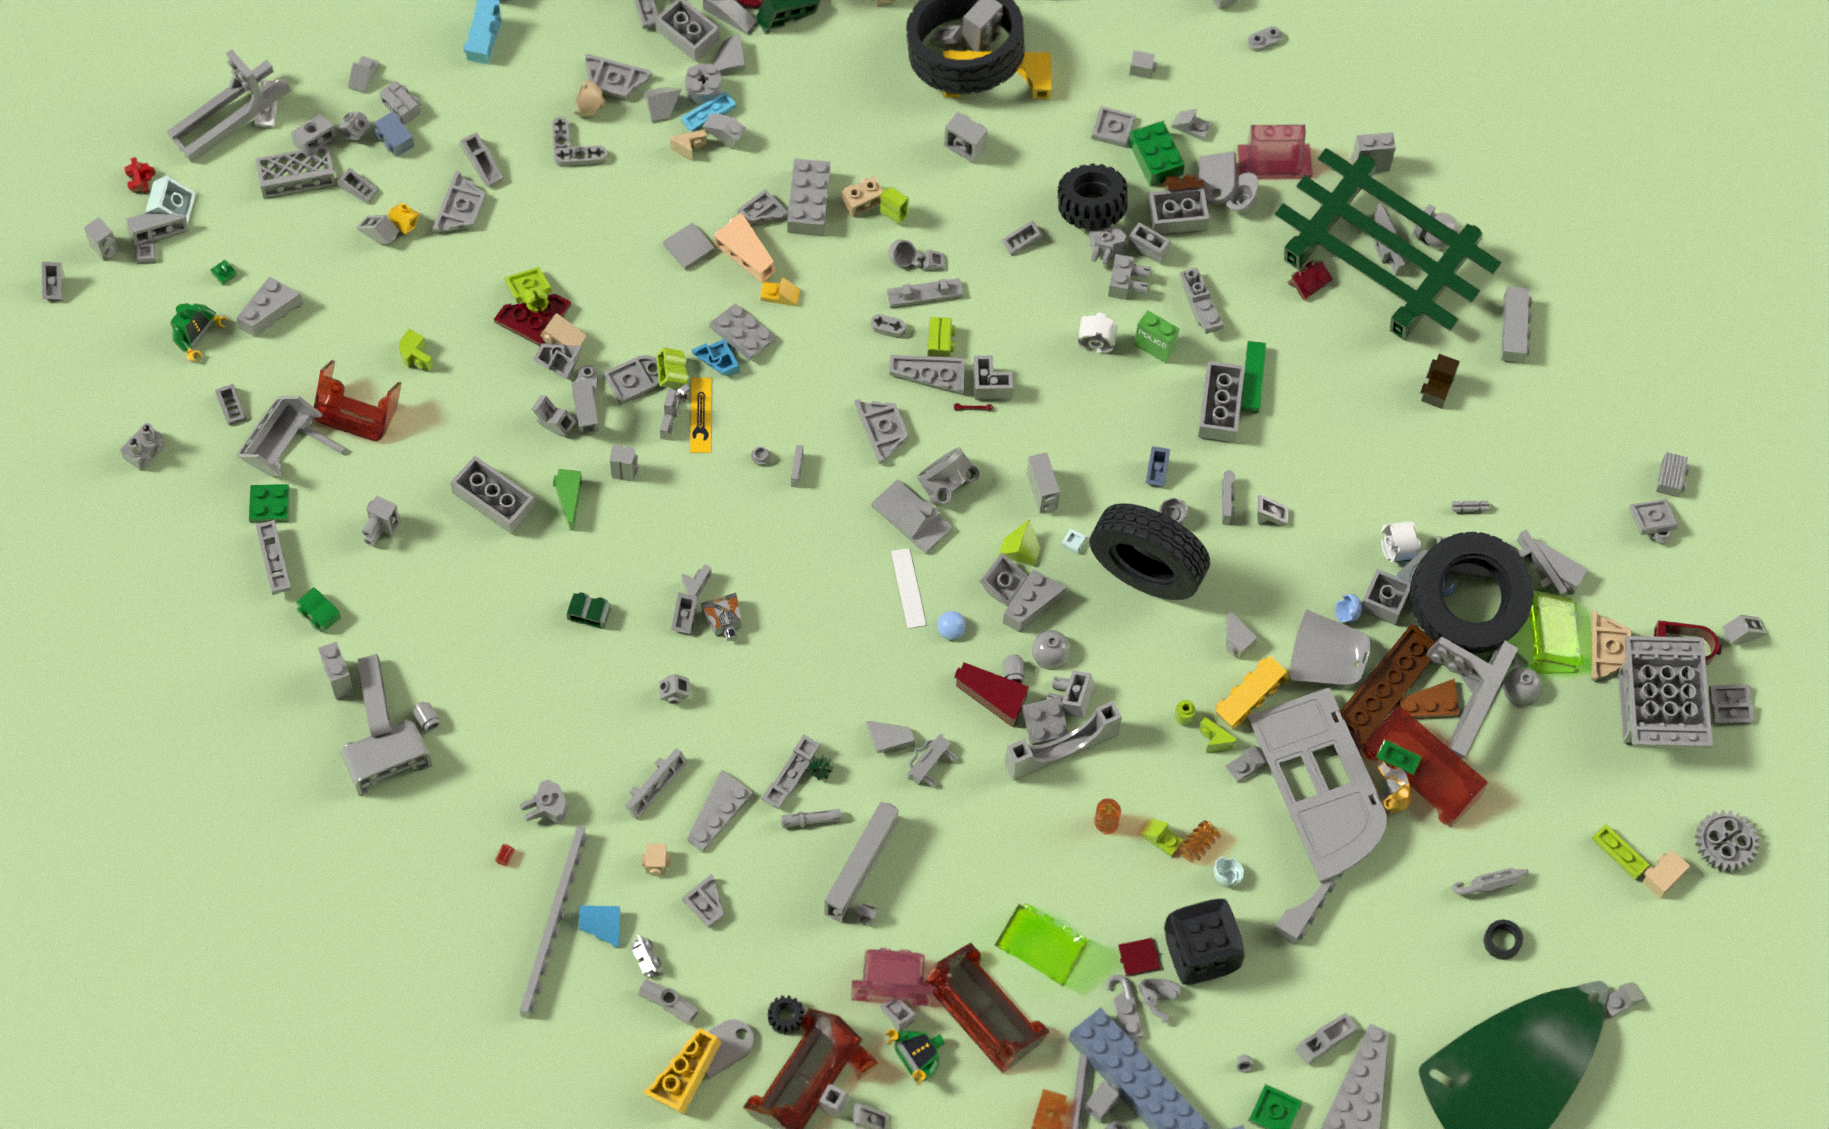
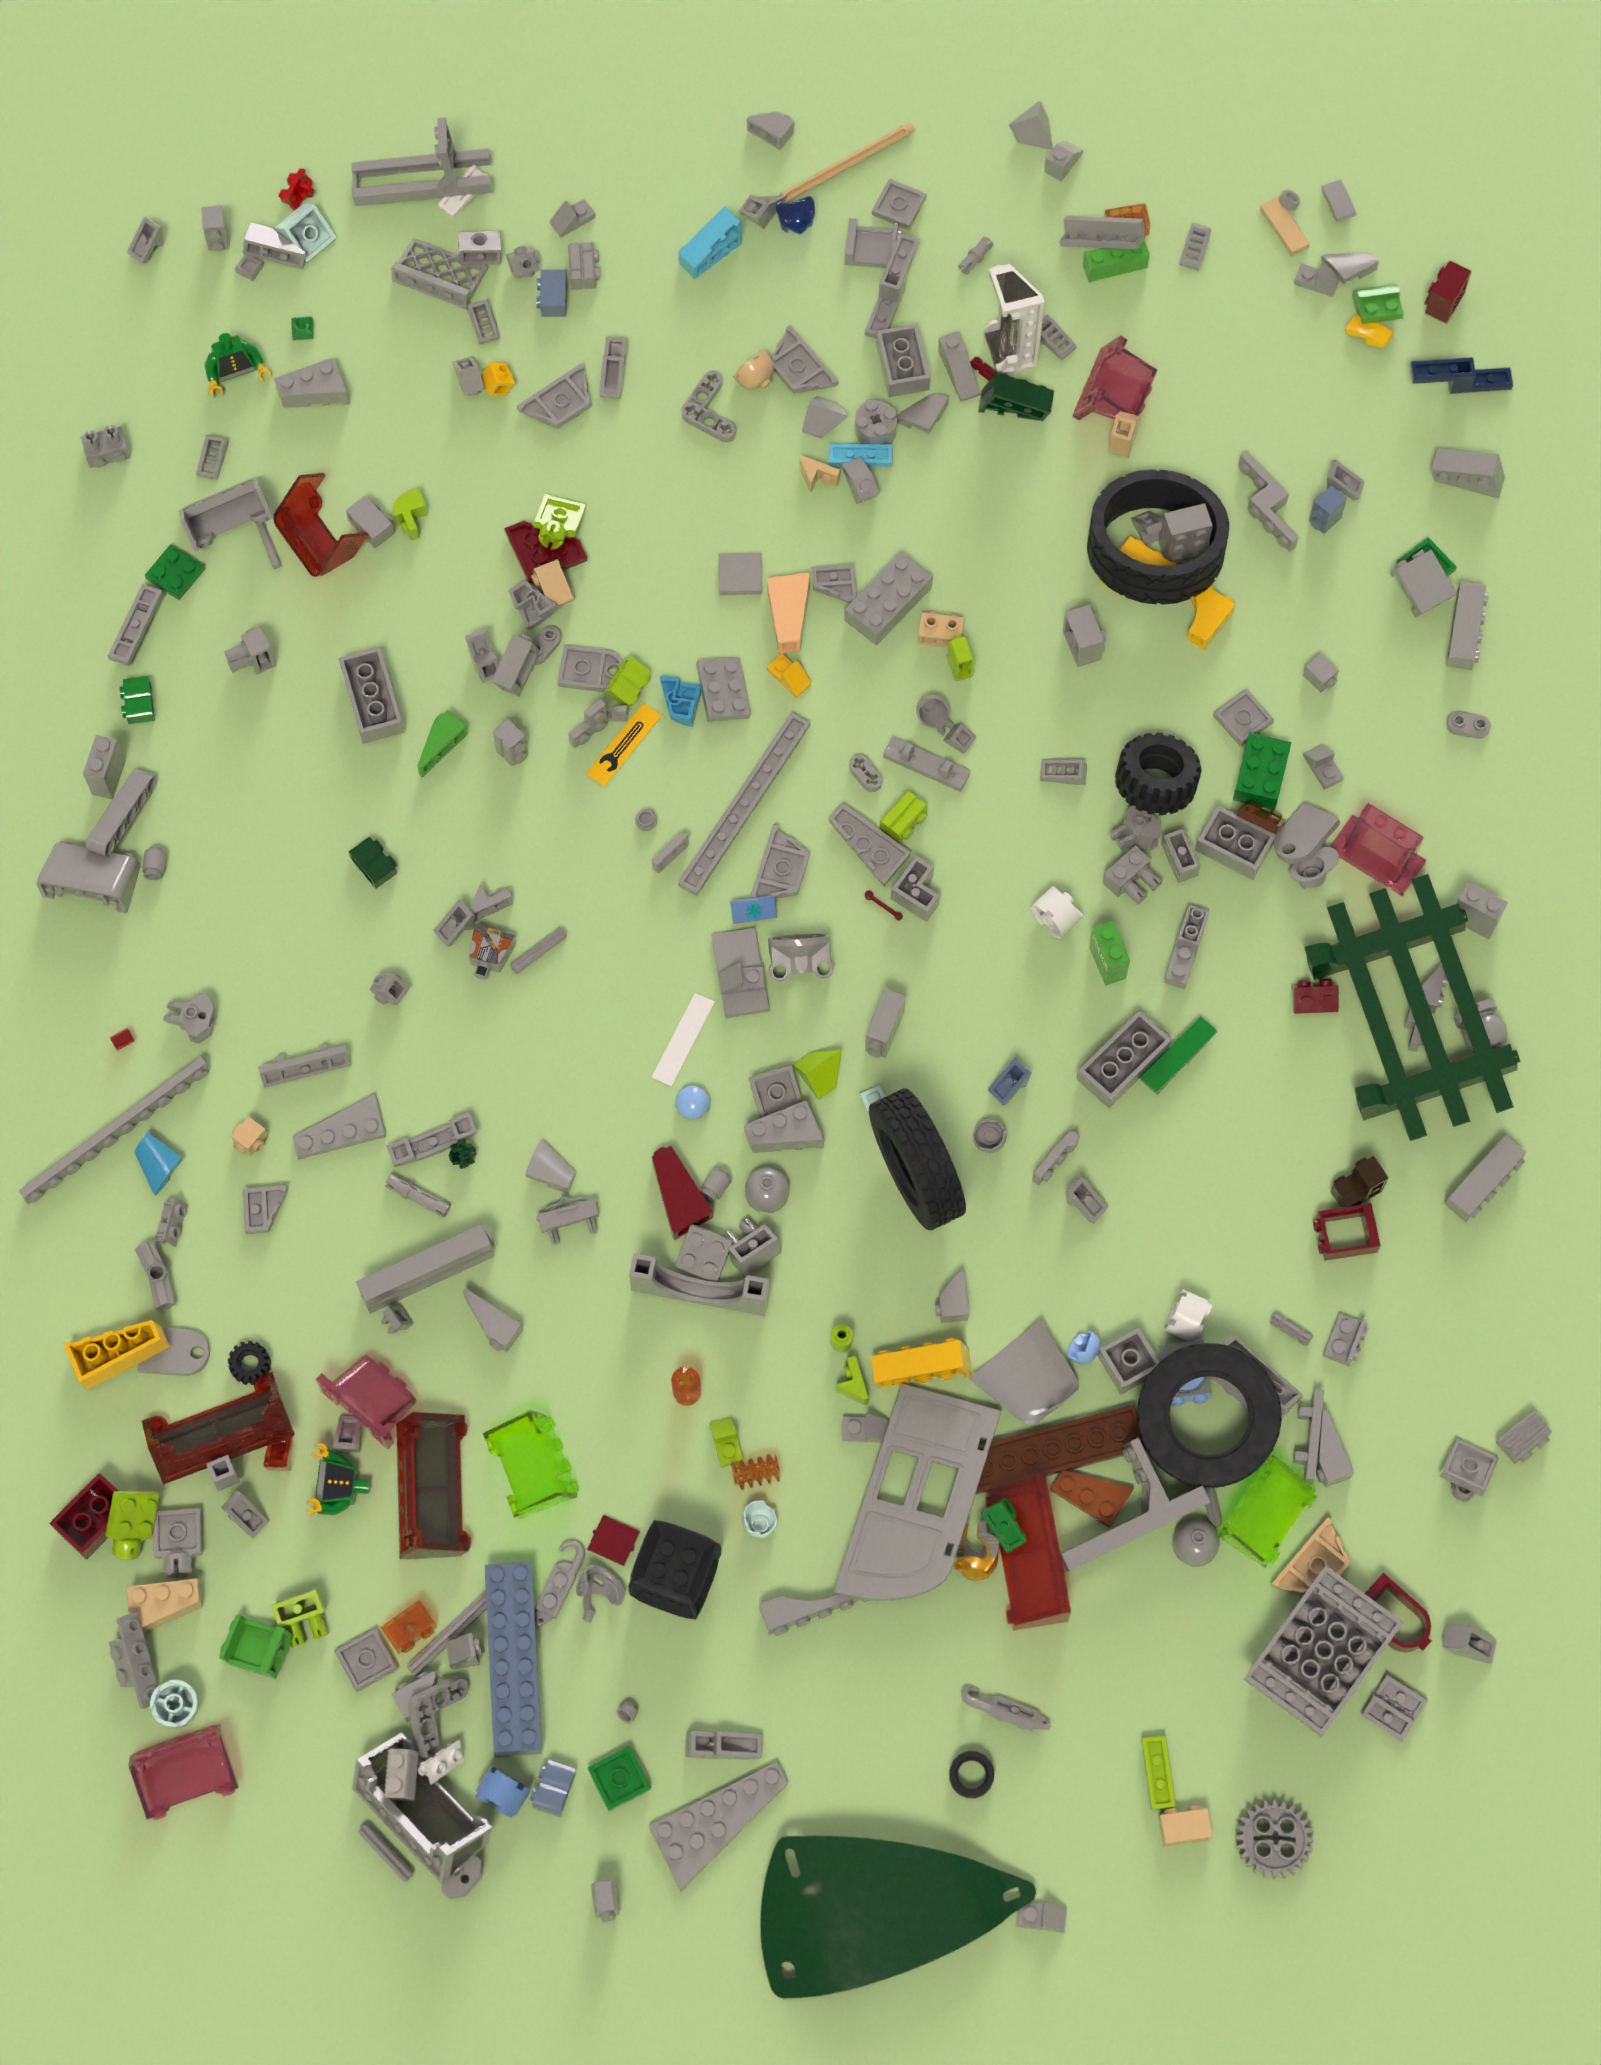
camera: 40 degrees right, 5 degrees up
(387, 373) = (368, 518): none -> light grey brick
(757, 594) = (538, 950): none -> light grey axle
(821, 400) = (744, 804): none -> light grey plate
(887, 467) = (753, 909): none -> medium blue tile
(937, 867) = (496, 1325): none -> light grey slope
(1467, 406) = (1369, 1226): none -> dark red window
(1510, 489) = (1344, 1339): none -> light grey bracket

